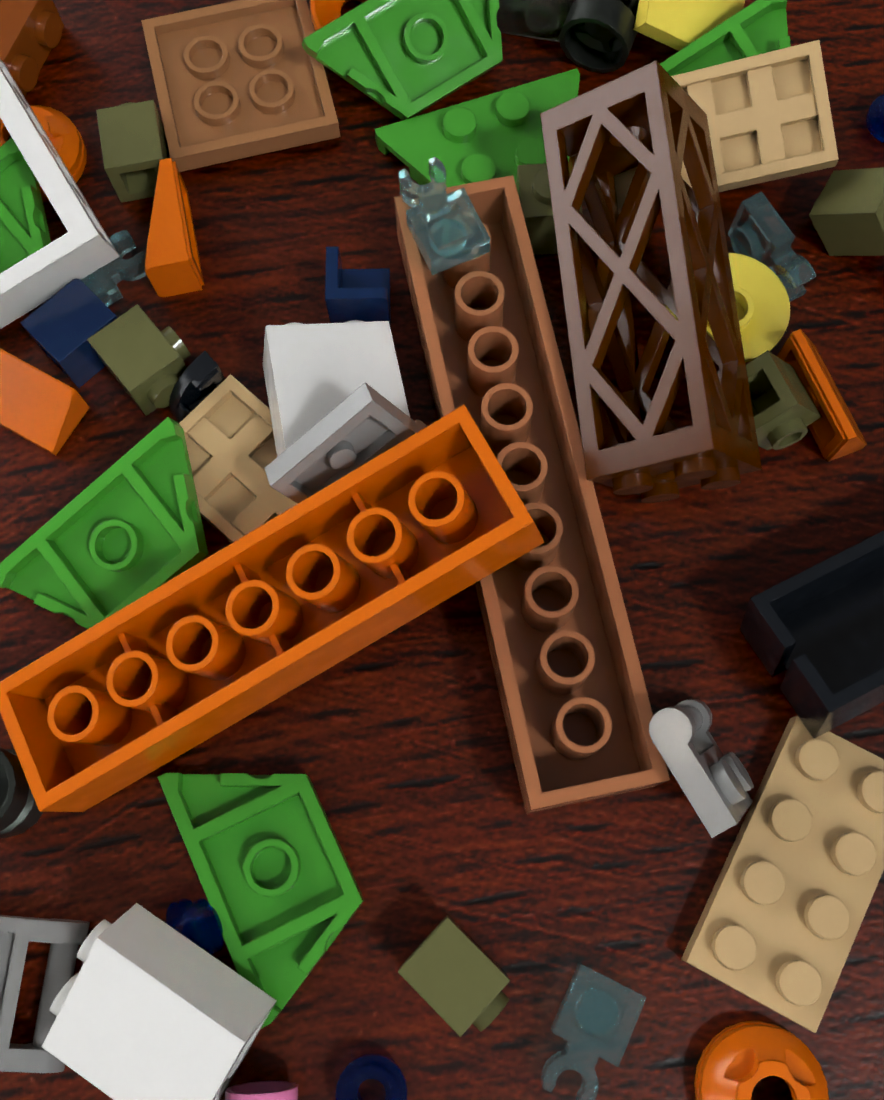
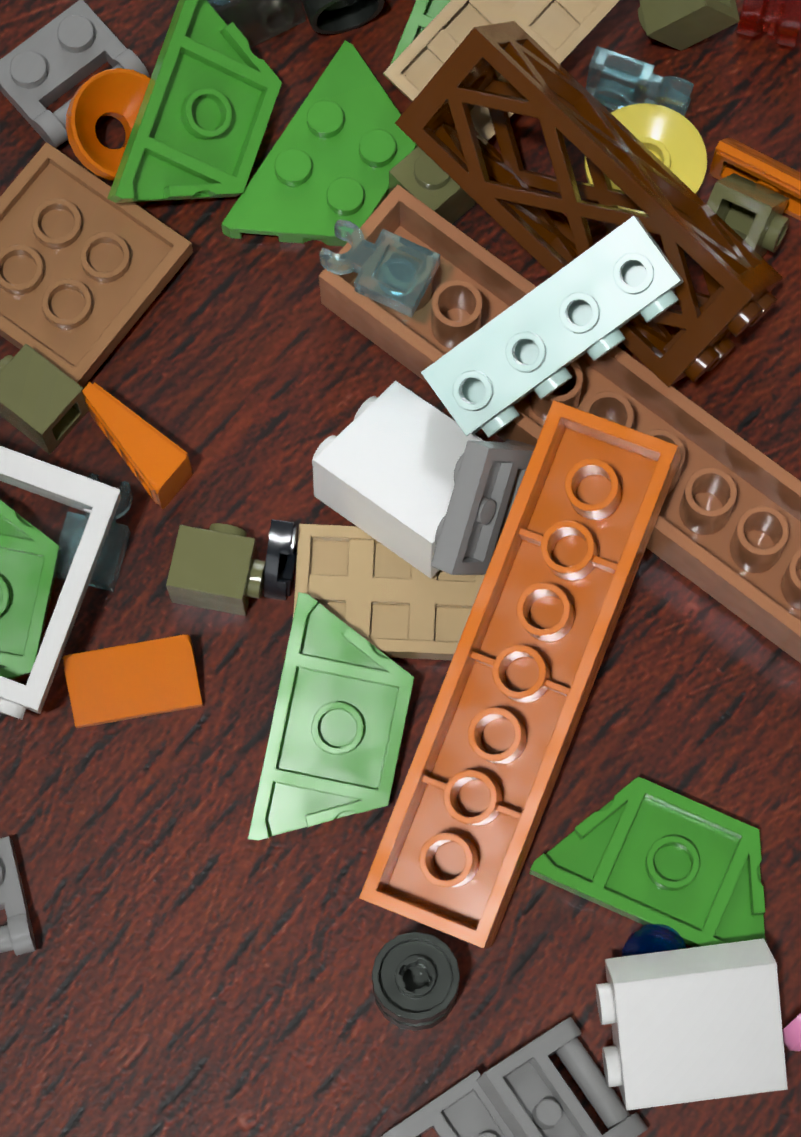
camera: 40 degrees left, 0 degrees up
(64, 326) = (135, 590): dark blue panel -> none
(356, 292) = (339, 379): dark blue panel -> none
(527, 351) = (553, 327): none -> light aqua brick

